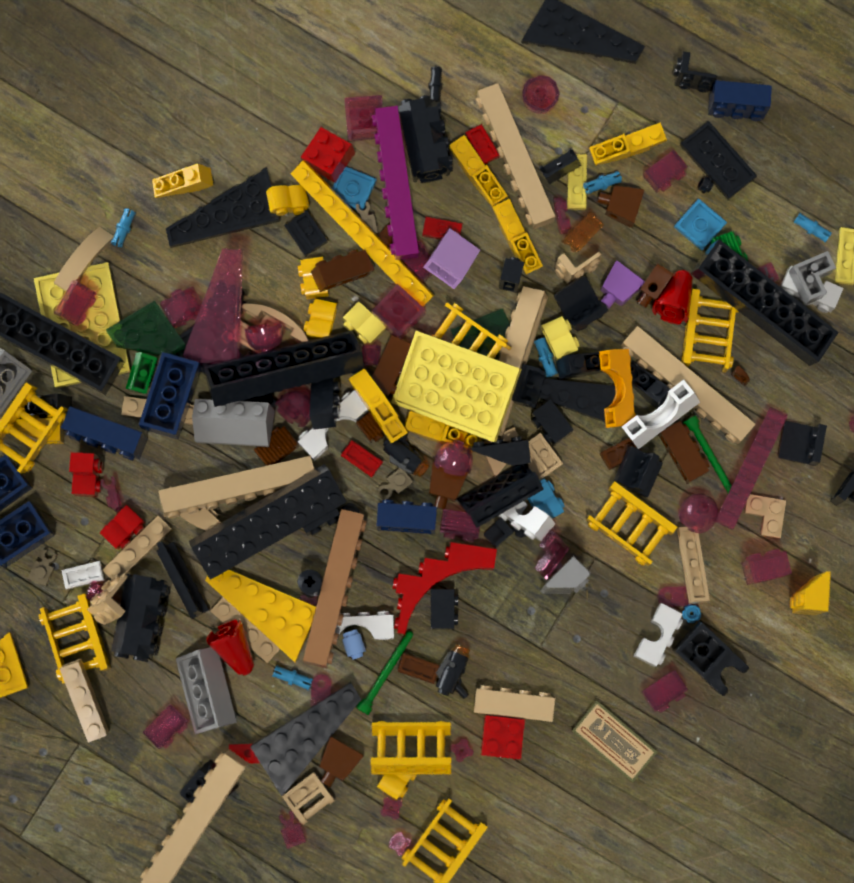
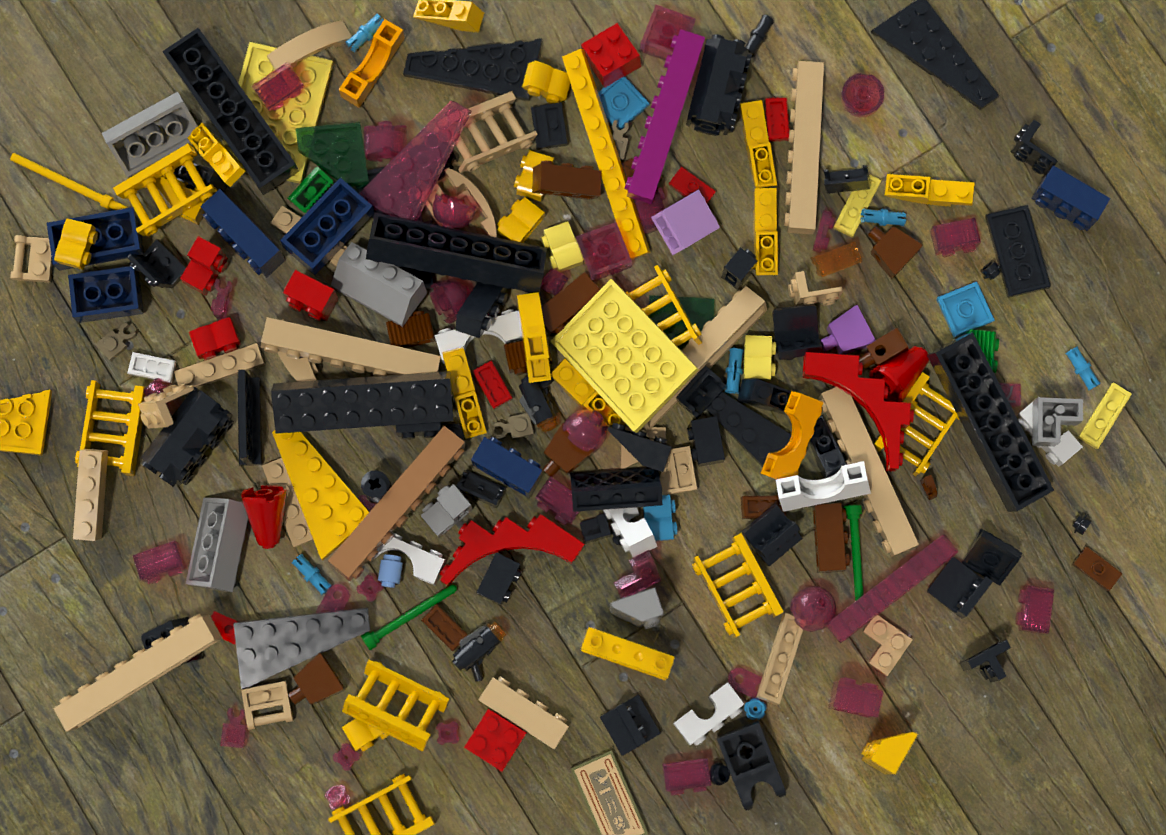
camera: 25 degrees right, 0 degrees up
(49, 490) = (158, 265): none -> black bracket
(52, 380) = (216, 154): none -> yellow slope
(143, 238) = (364, 77): none -> light orange arch
(183, 457) = (310, 295): none -> red brick
(251, 245) = (485, 112): none -> tan fence
(340, 670) = (363, 588): none -> clear pink plate
(343, 475) = (464, 392): none -> yellow slope
(375, 576) = (447, 511): none -> light grey brick
(393, 545) = (480, 488): none -> black hinge
(573, 619) = (627, 654): none -> yellow fence
(601, 674) = (630, 725): none -> black bracket
(684, 336) = (870, 393): none -> red arch
(689, 677) = (719, 774): none -> black plate
(815, 406) = (991, 557): none -> black bracket

